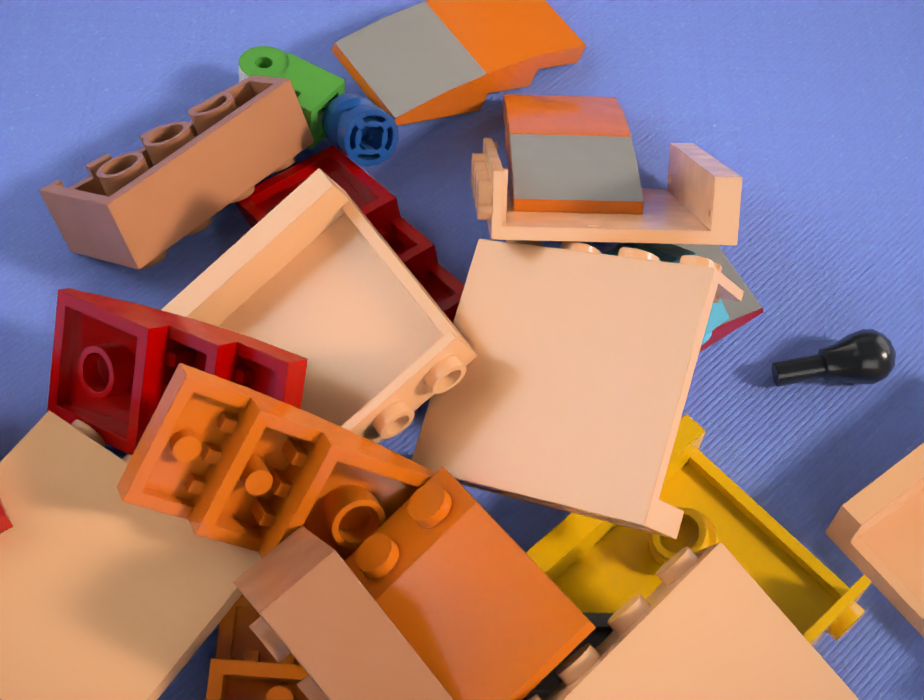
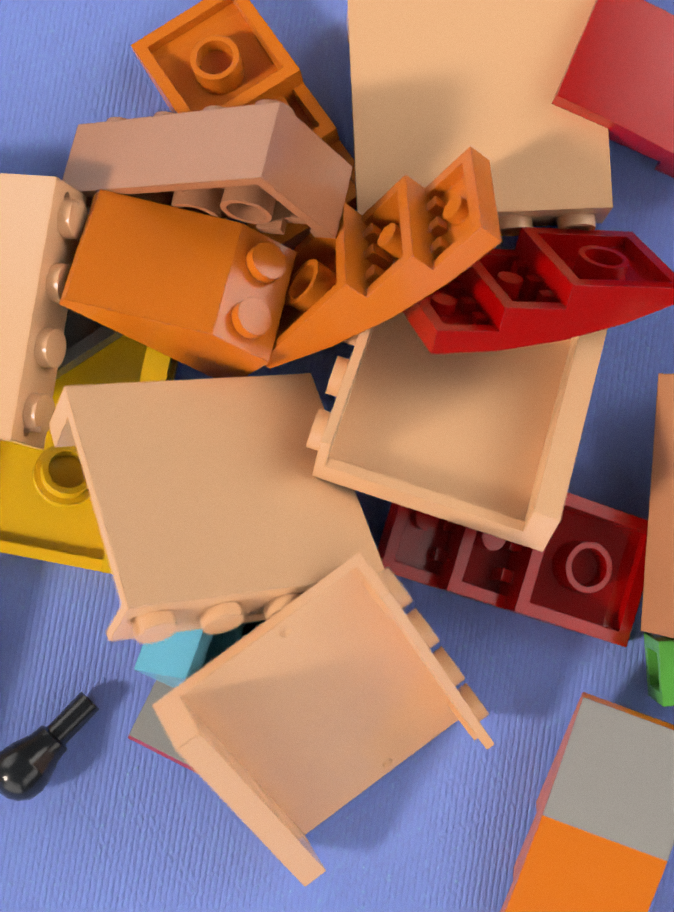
camera: 145 degrees right, 25 degrees up
(347, 126) = (605, 666): blue wheel -> none
(570, 155) = (397, 767): slope -> none

